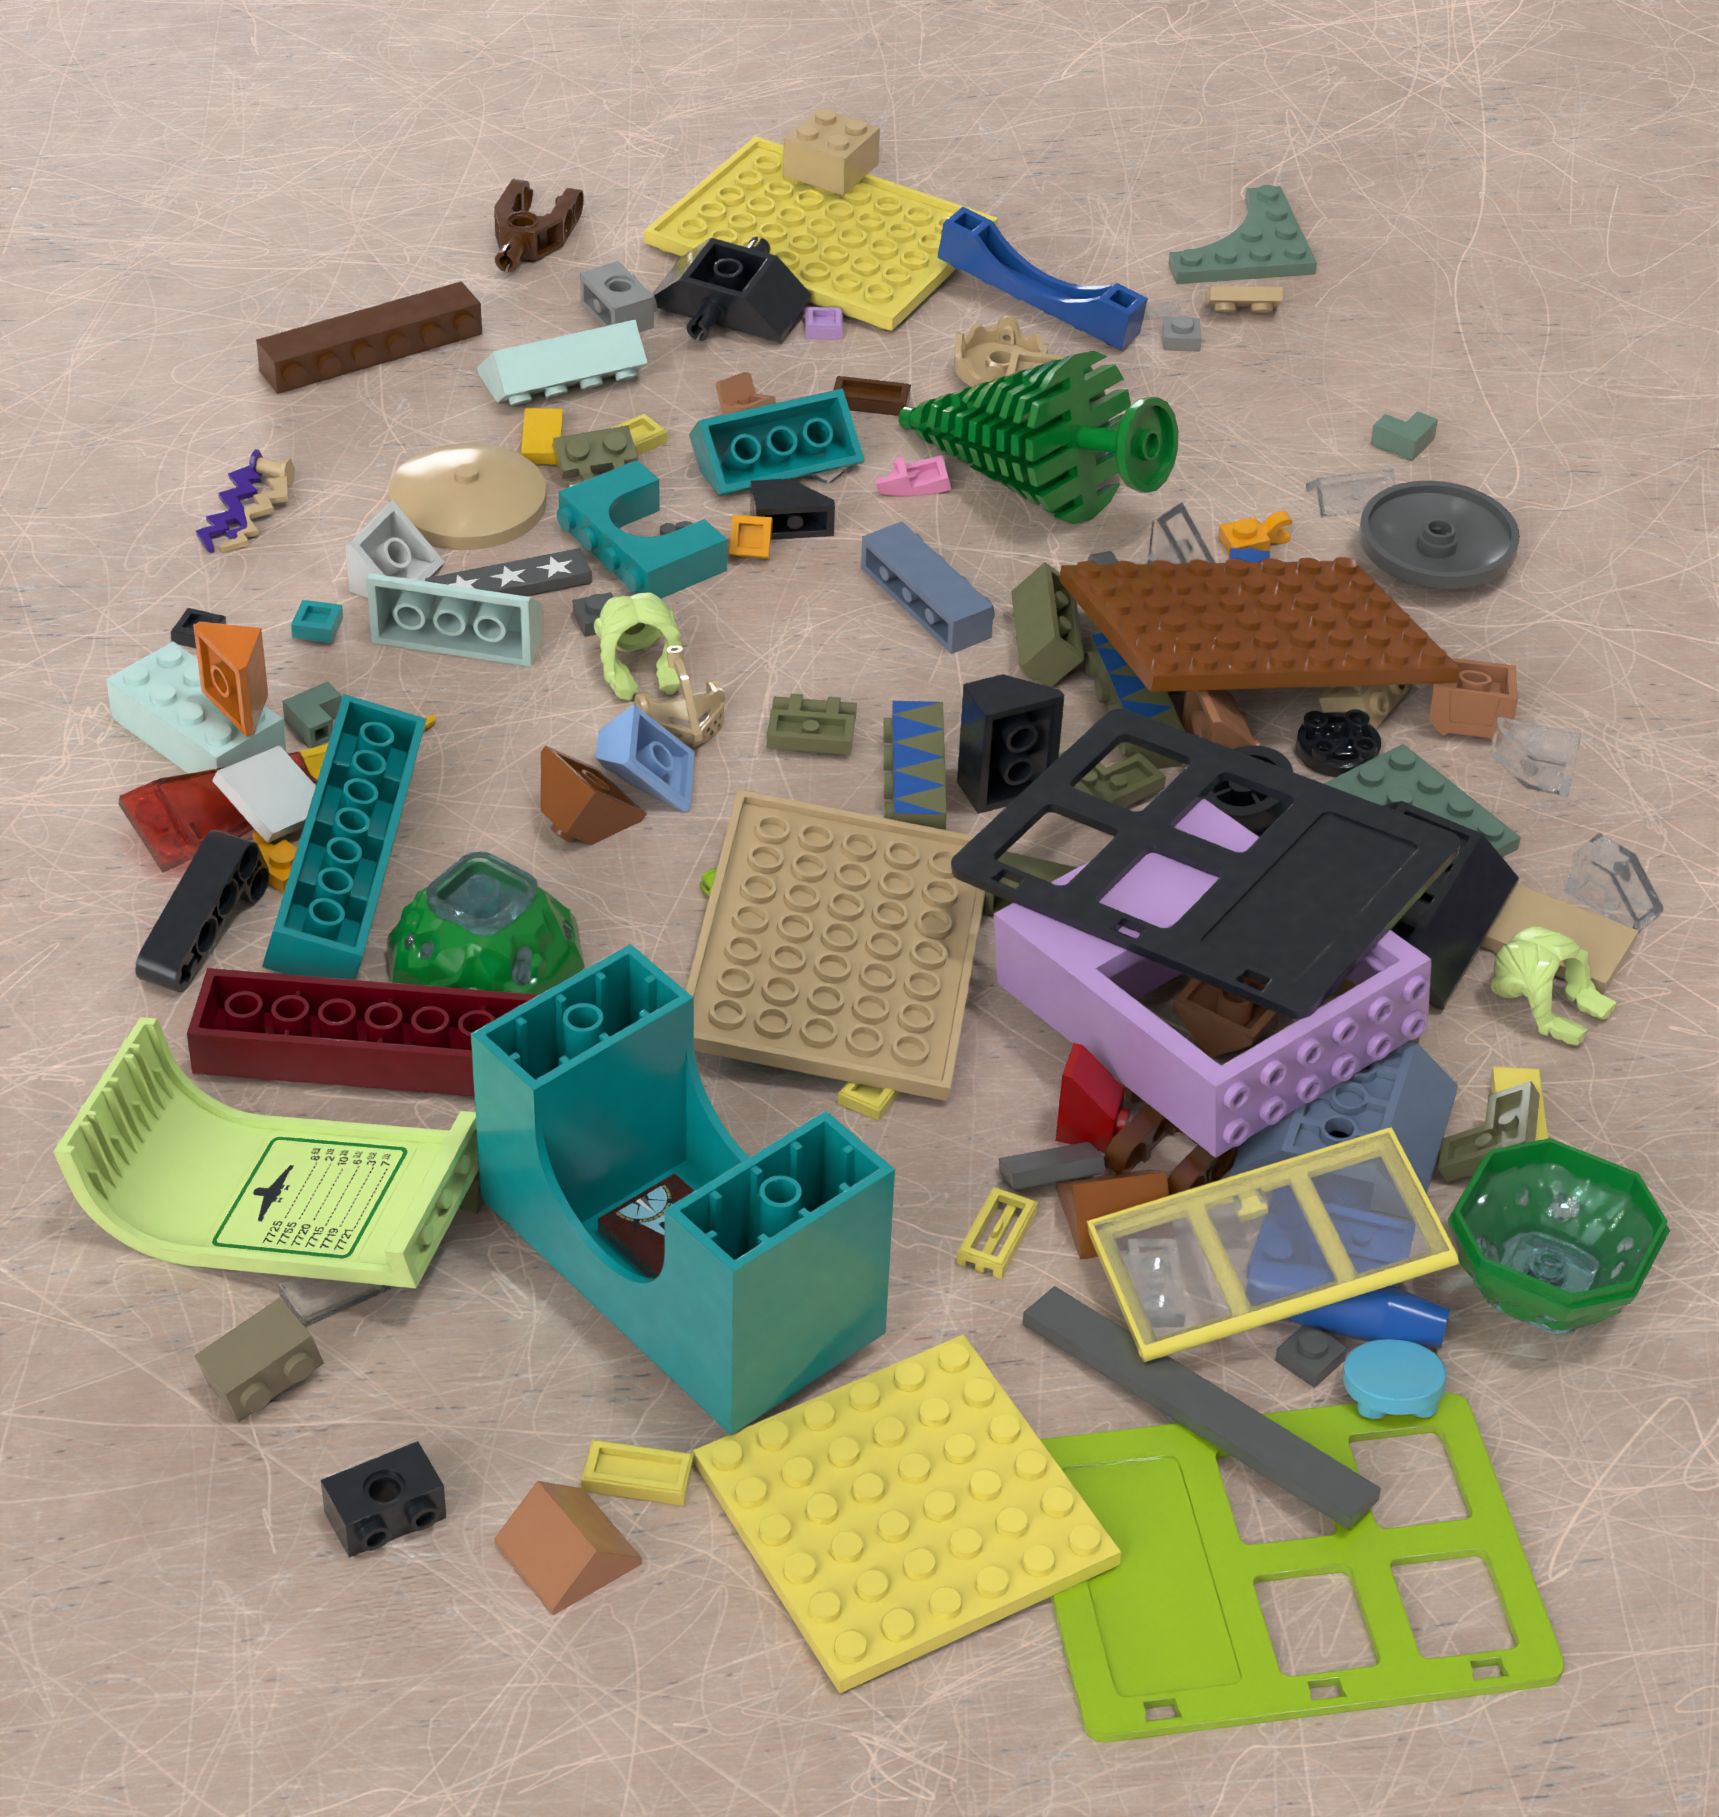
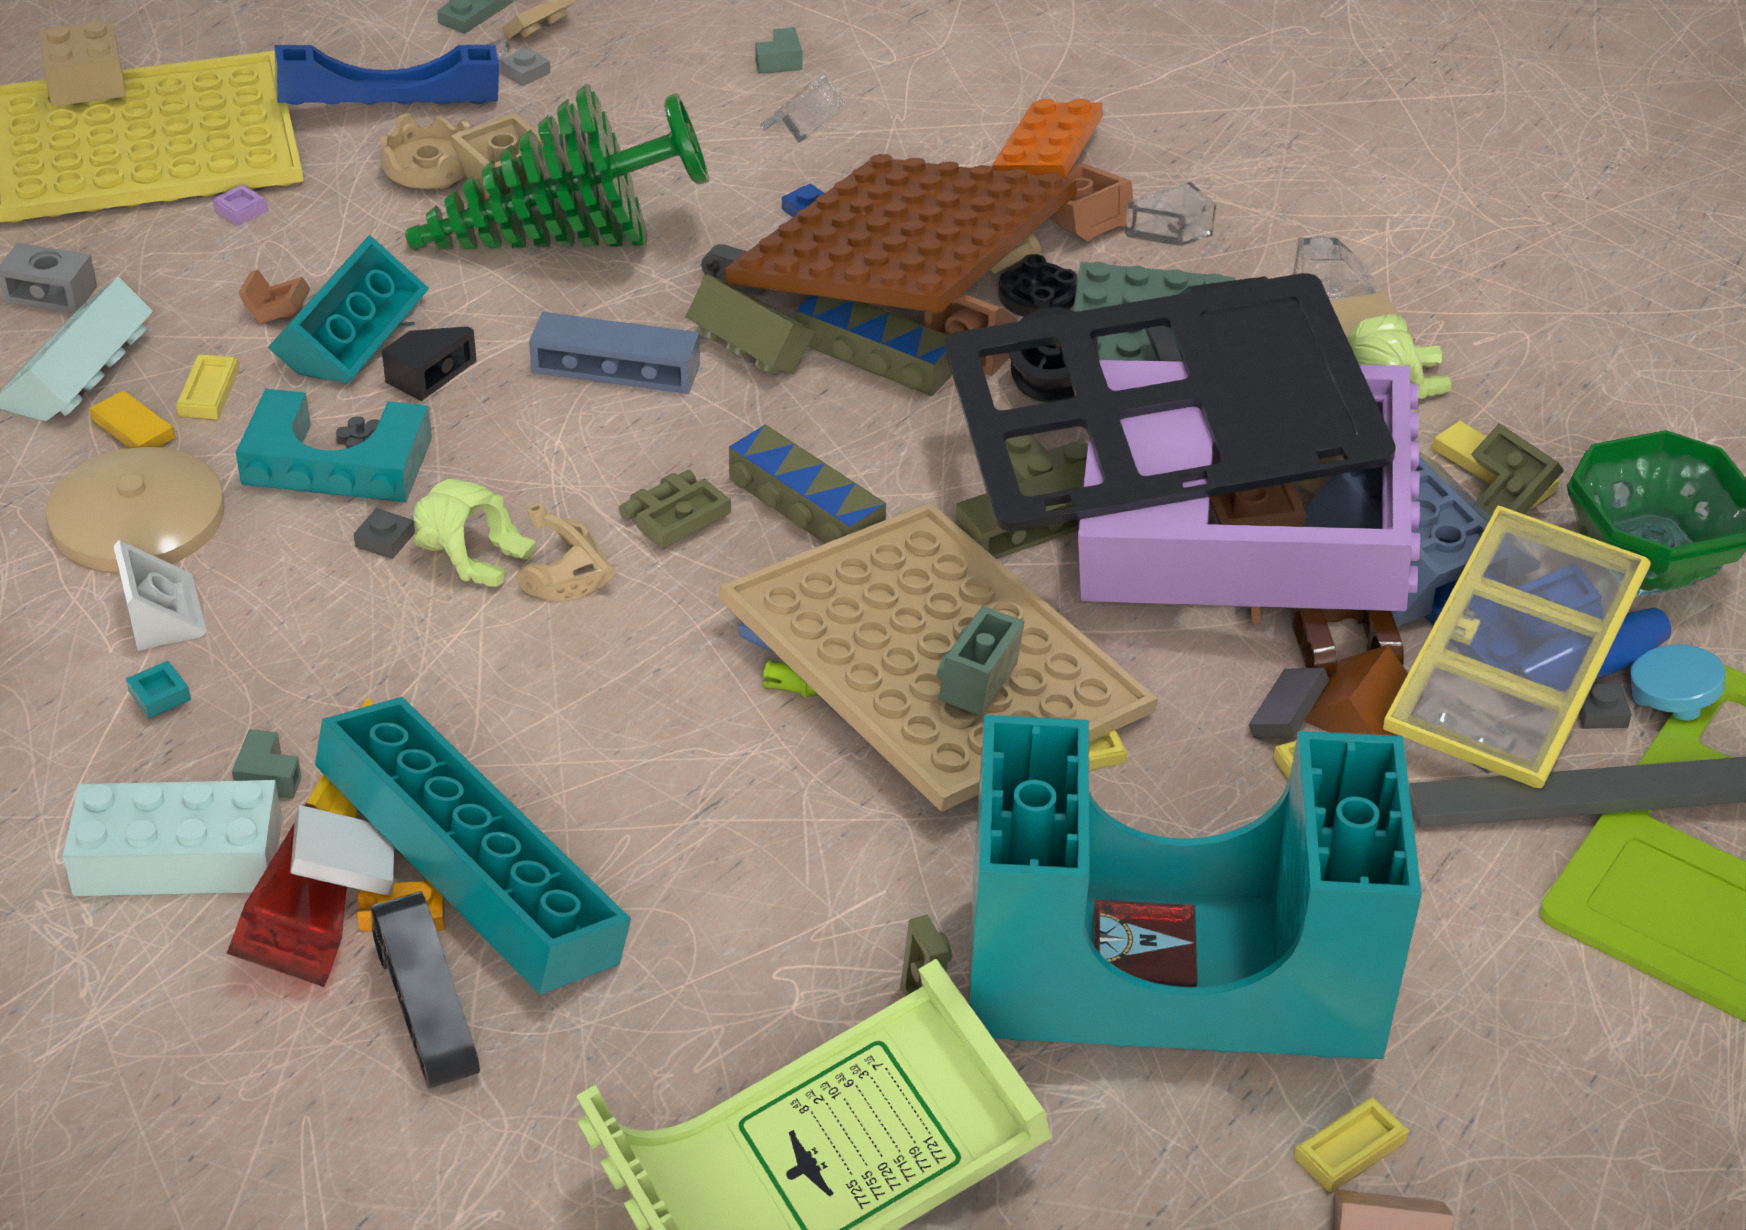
camera: 45 degrees left, 0 degrees up
(184, 631) = (51, 768): black tile -> none
(233, 671) = (219, 762): orange slope -> none
(340, 1030) = (717, 972): dark red brick -> none
(454, 620) = (288, 610): light aqua slope -> none
(486, 931) = (686, 844): green rock -> none
(525, 575) = (270, 554): dark grey tile -> none
(583, 800) = (597, 681): dark orange slope -> none
(593, 452) = (206, 409): olive plate -> none
(647, 757) = (594, 616): light blue slope -> none
(734, 290) = (139, 215): black slope -> none
(750, 537) = (430, 391): light orange plate -> none
(822, 958) = (980, 660): none -> sand green brick
(874, 395) = (343, 241): reddish brown tile -> none
(904, 1511) = (1550, 1020): light yellow plate -> none
(916, 478) = (485, 278): bright pink slope -> none
(1006, 738) = (866, 416): black slope -> none
(1089, 1102) = (1261, 641): red slope -> none
(1124, 781) = (933, 420): olive plate -> none
(1176, 538) = (752, 215): clear slope -> none
(1252, 534) = (780, 180): light orange plate -> none
(1439, 534) = (911, 104): dark grey dish -> none
(1518, 630) = (1050, 137): none -> orange plate

